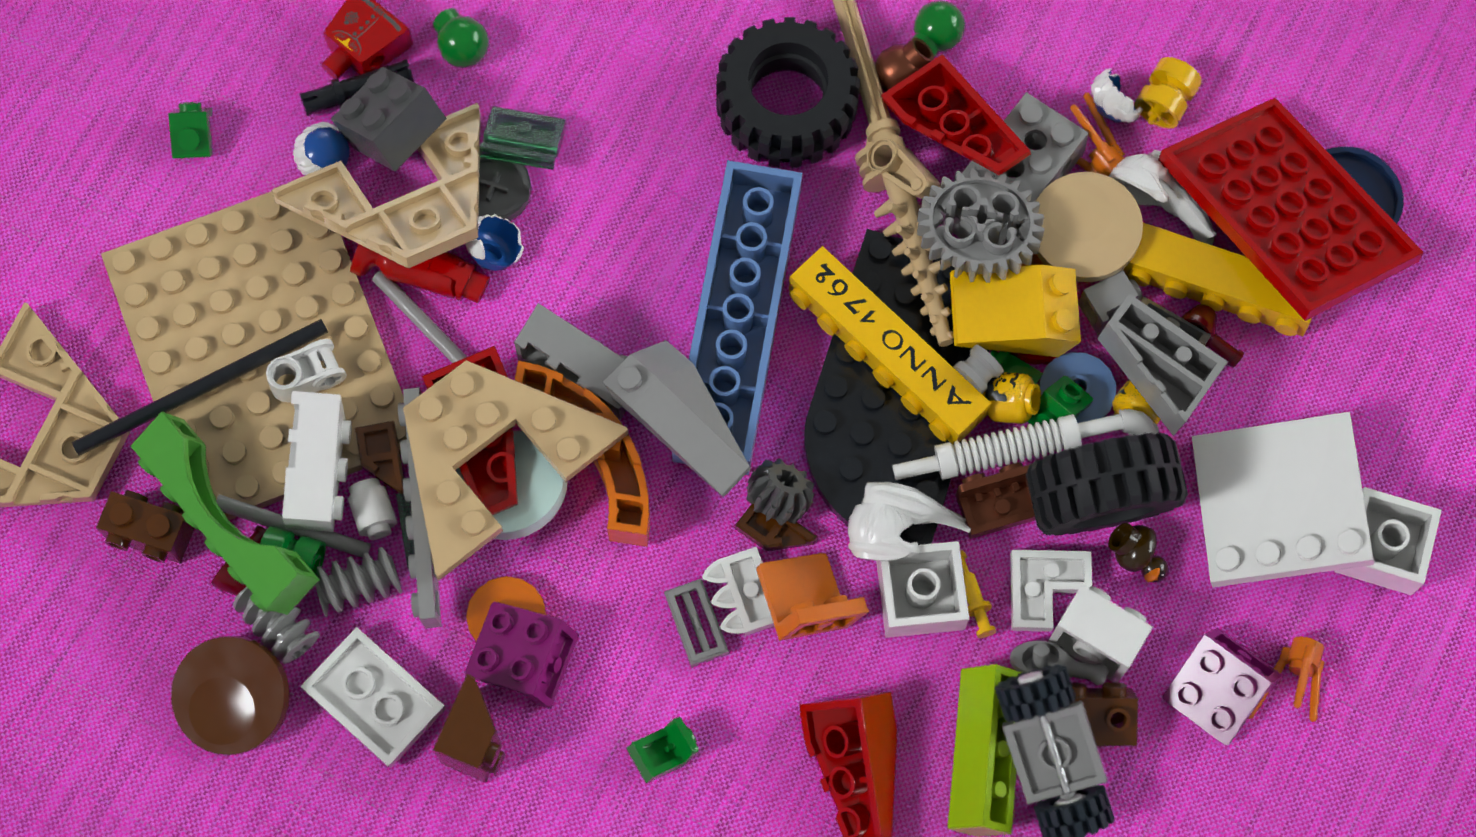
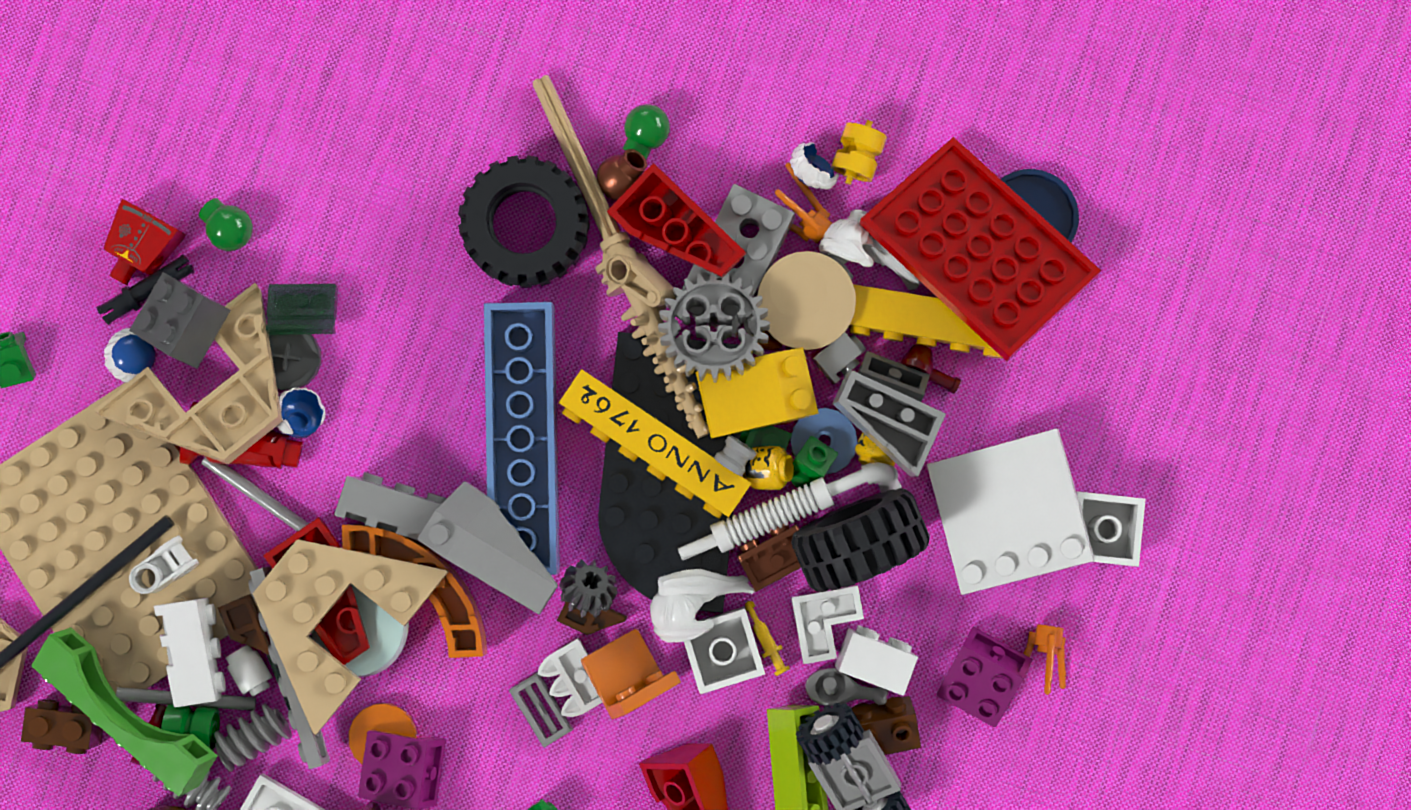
camera: 10 degrees left, 15 degrees up
(1135, 551) = (899, 582): dark brown animal -> none

